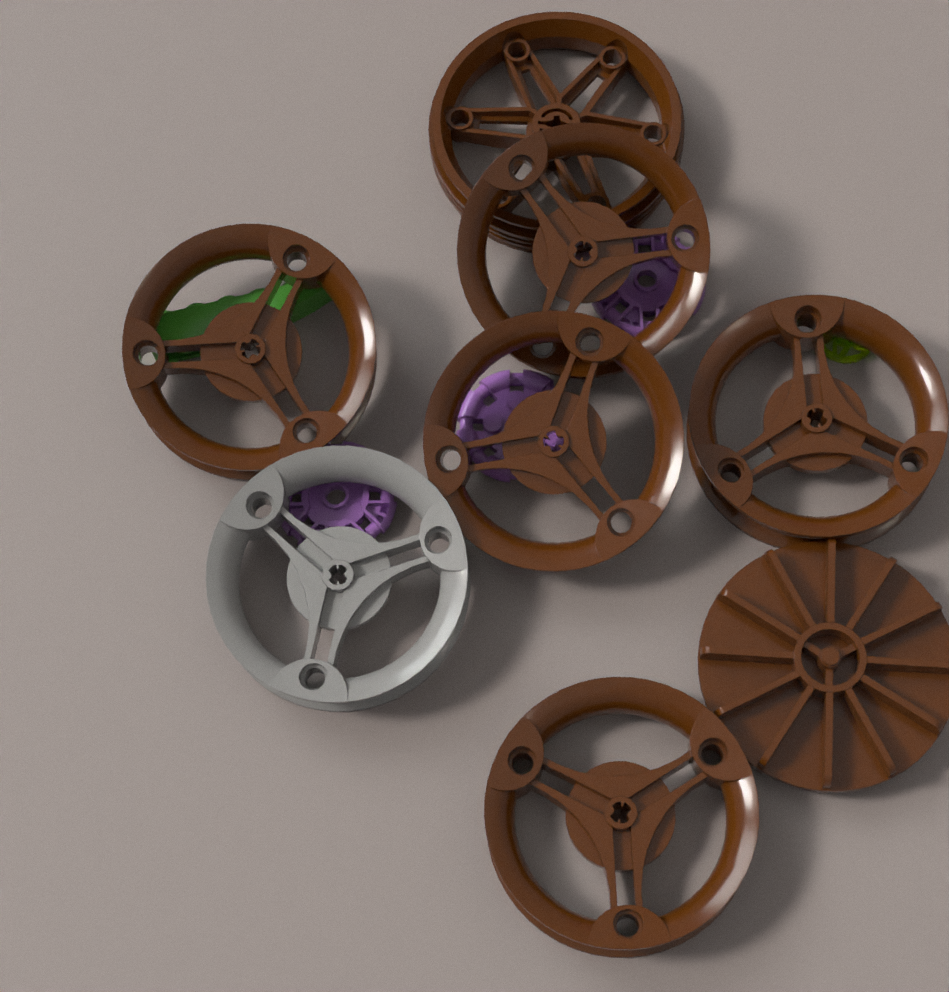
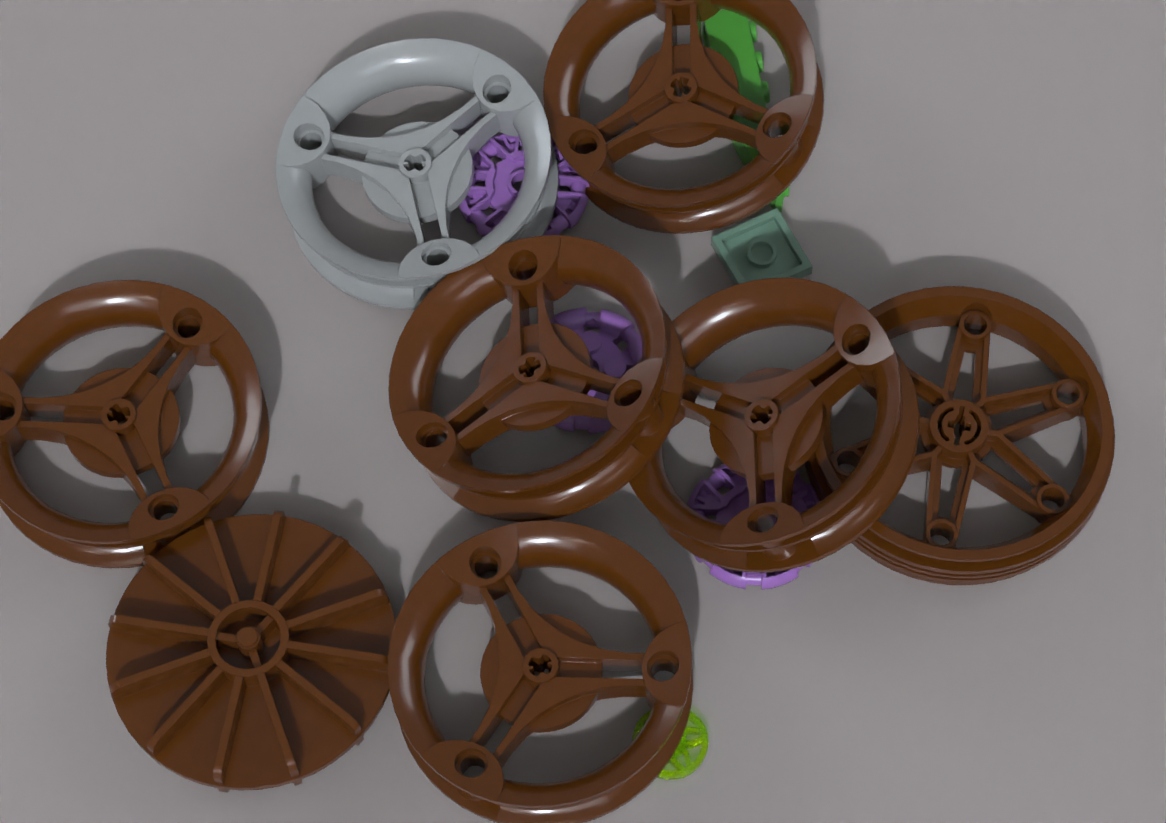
camera: 90 degrees right, 5 degrees down
(396, 294) = (761, 250): none -> sand green plate

